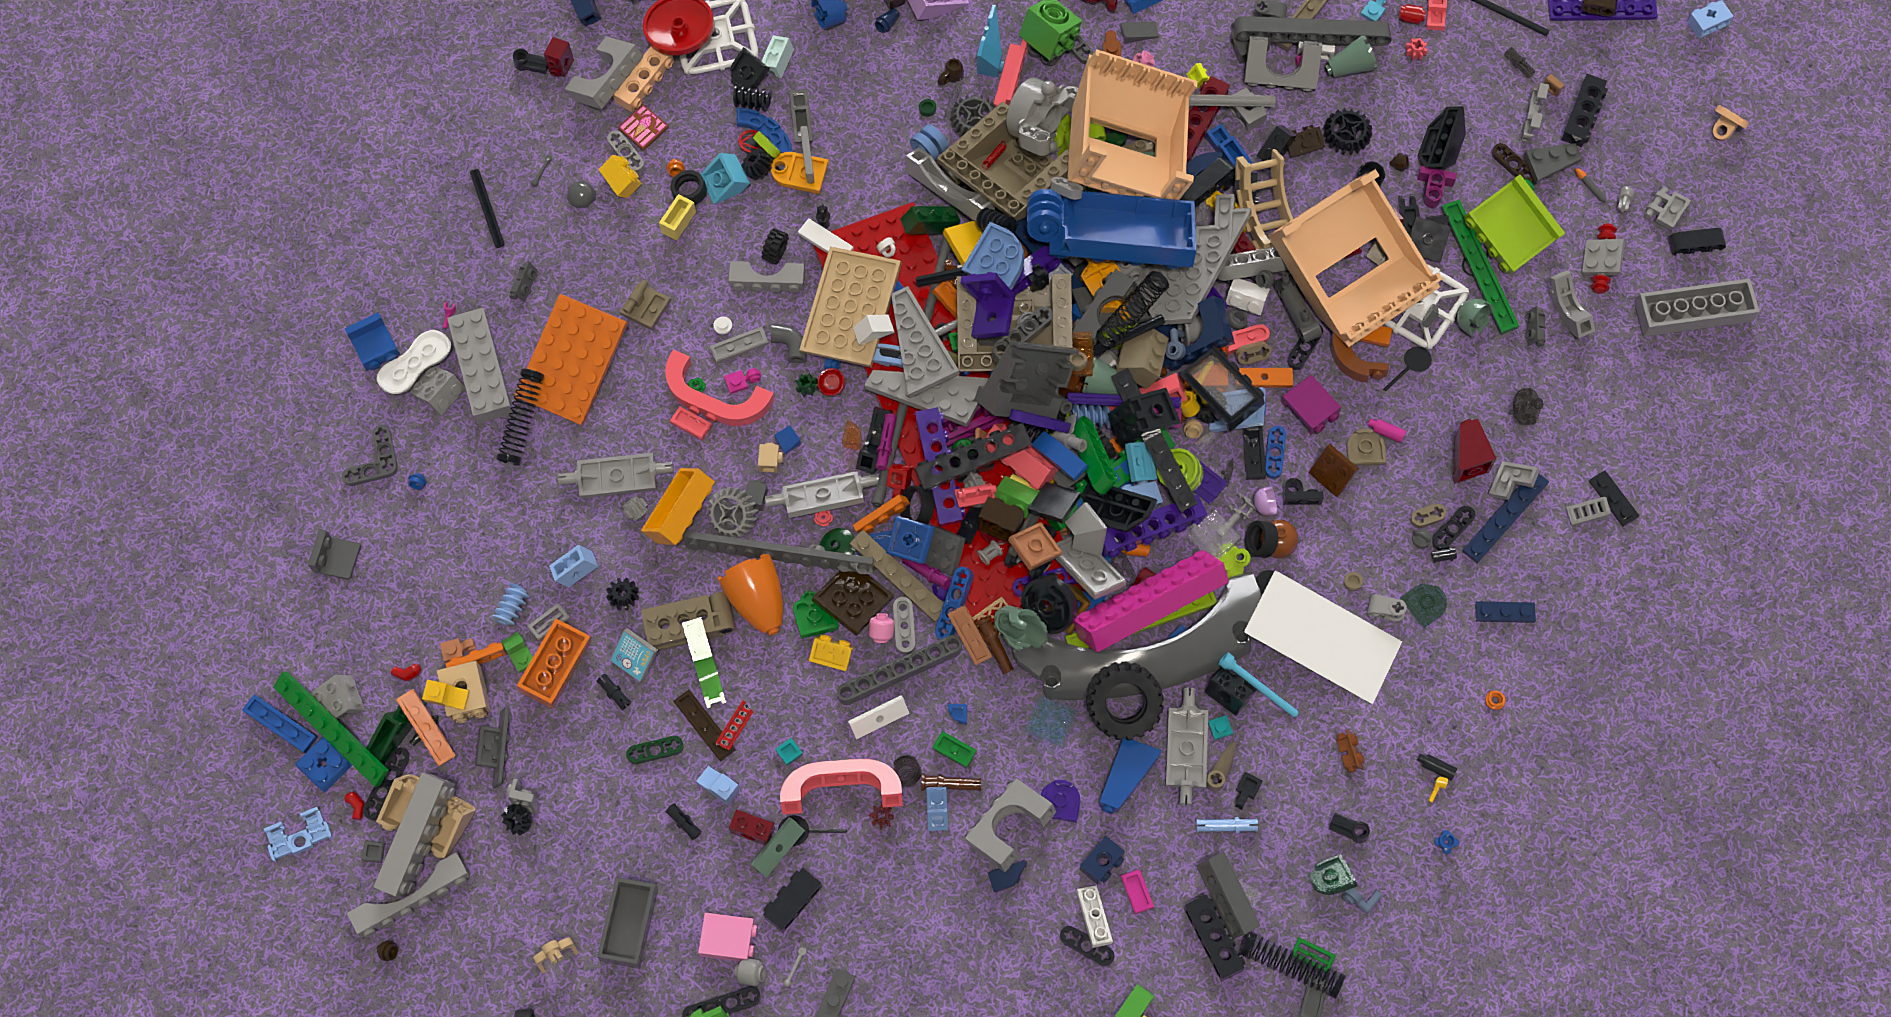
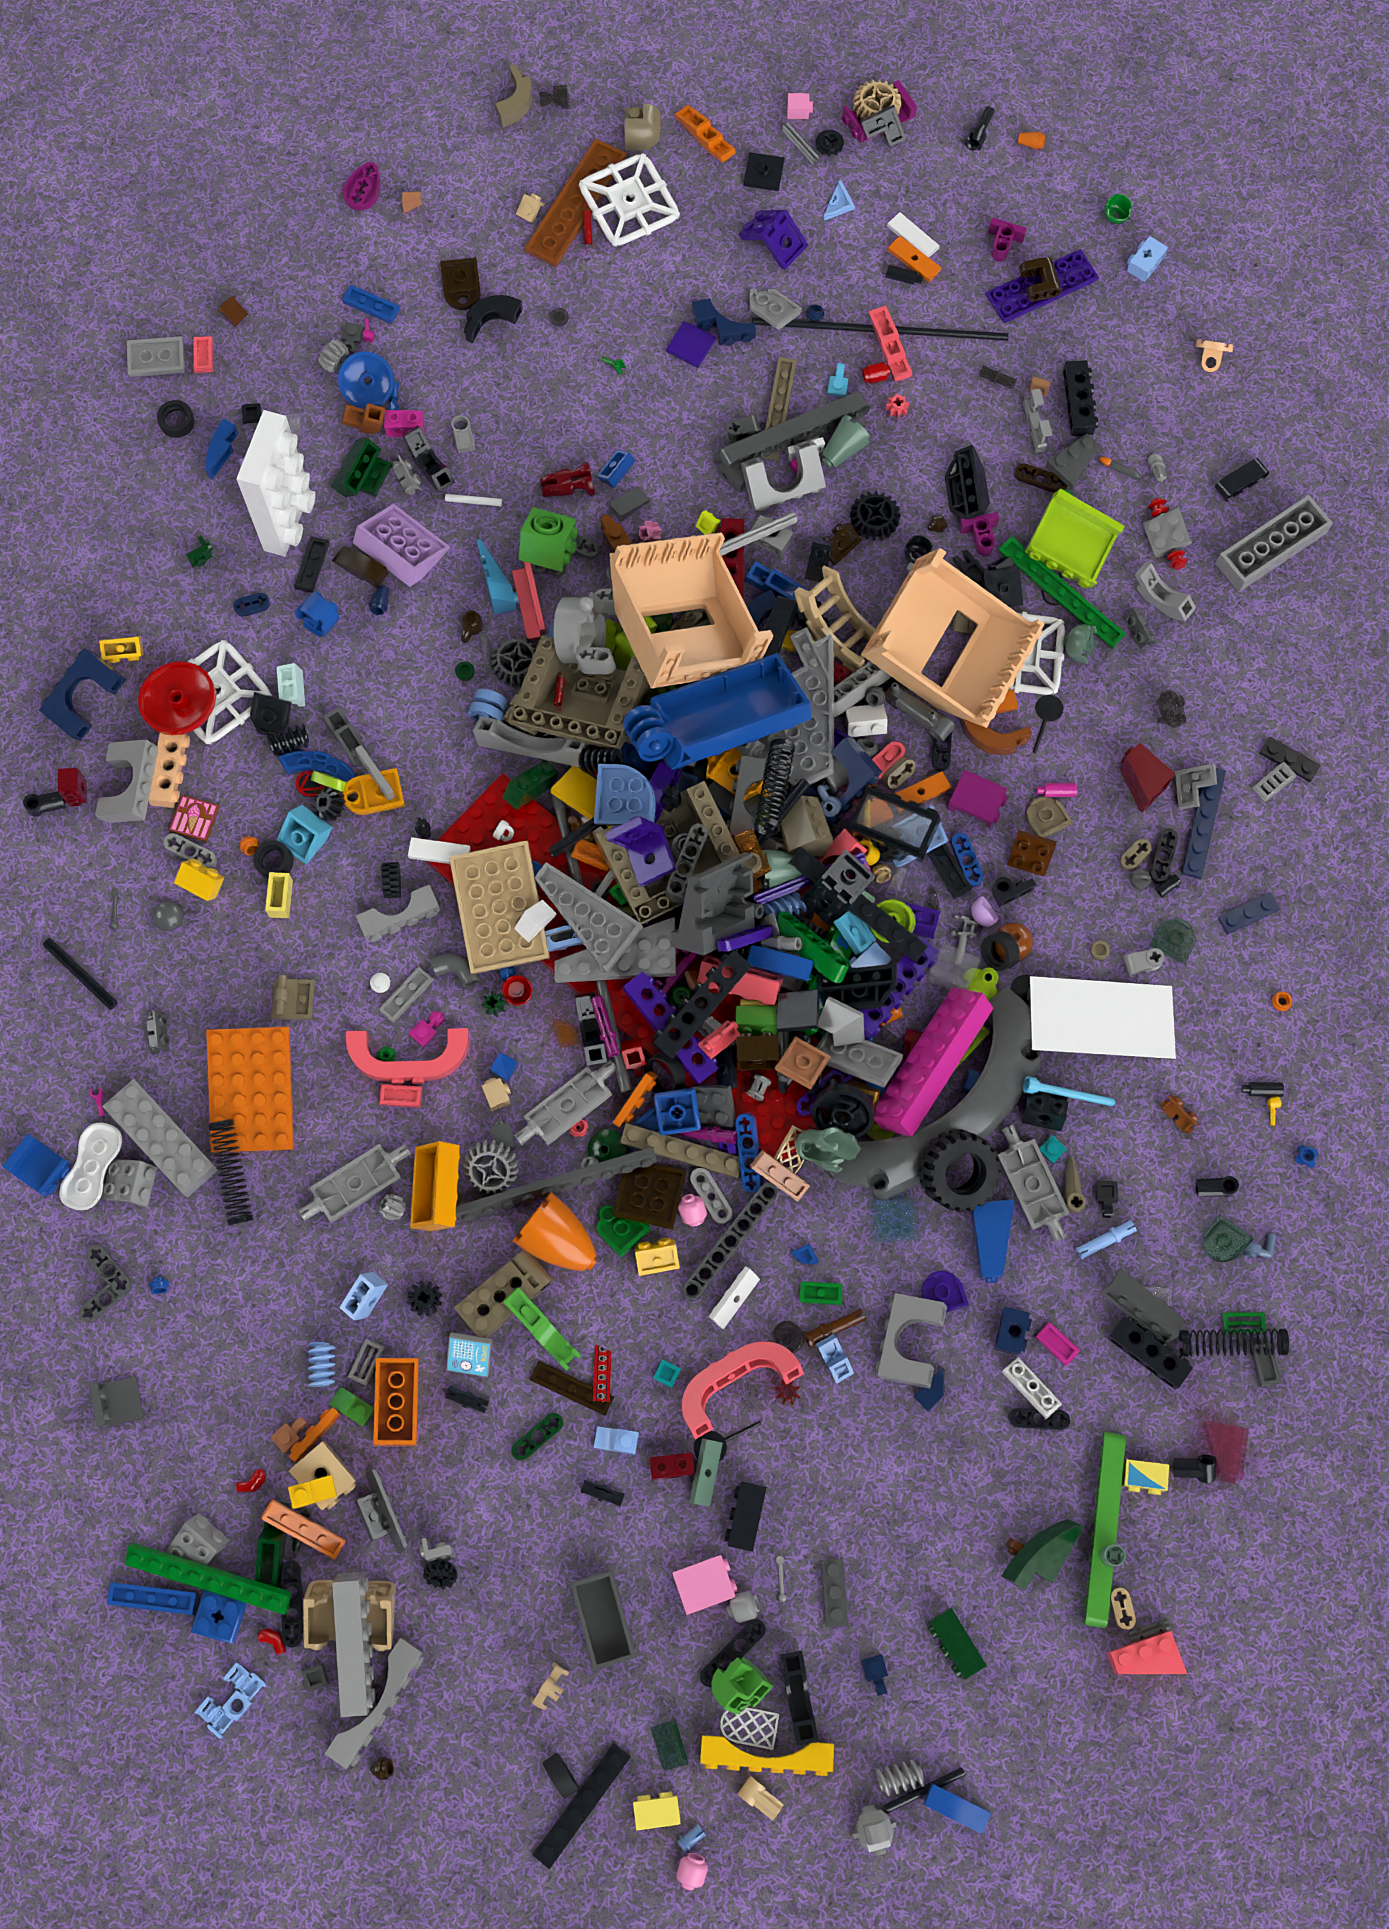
camera: 30 degrees left, 5 degrees up
(990, 636) = (801, 1168): reddish brown pin -> none
(1066, 188) = (654, 696): light grey beam -> none
(1430, 315) = (1043, 661): dark grey tile -> none
(1671, 212) = (1205, 459): light grey plate -> none

